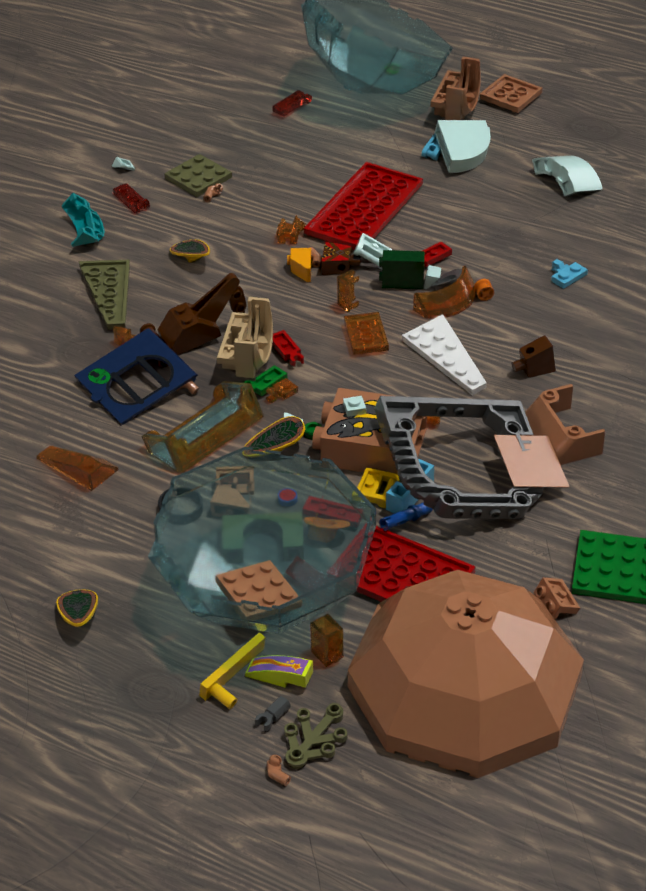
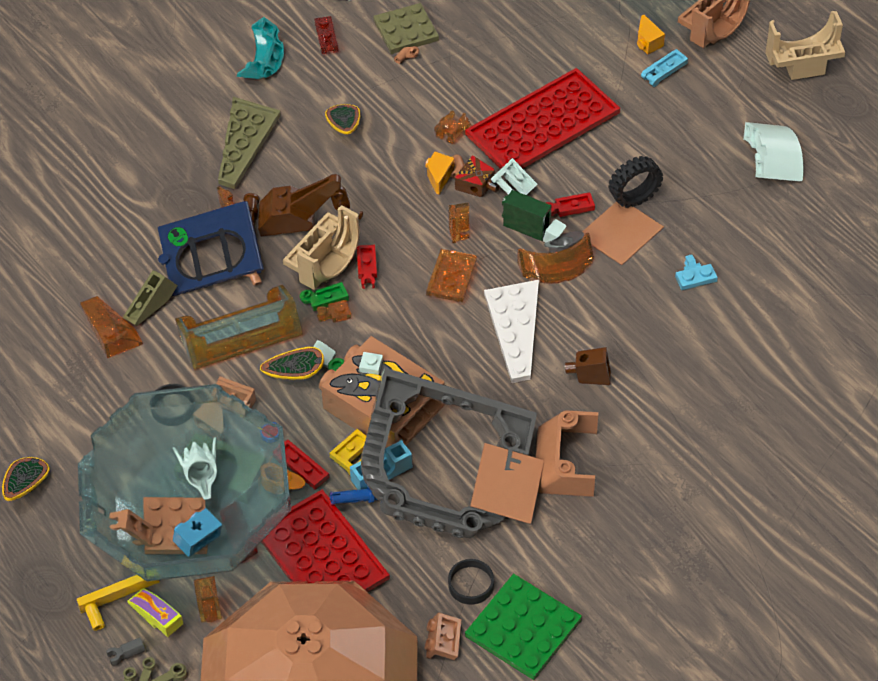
camera: 25 degrees right, 10 degrees up
(105, 428) = (151, 297): none -> olive slope
(225, 588) = (133, 526): none -> nougat hinge
(254, 531) = (199, 466): none -> light aqua piece
(287, 582) = (197, 532): none -> dark azure brick
(409, 125) = (649, 36): none -> light orange slope
(463, 143) = (688, 78): light aqua brick -> none
(470, 216) = (644, 190): none -> black tyre
(484, 289) = (596, 265): orange wheel -> none
(486, 262) = (622, 232): none -> nougat piece
(511, 93) = (787, 20): nougat plate -> none
(548, 563) = (470, 600): none -> black tyre
(550, 102) = (809, 55): none -> tan piece

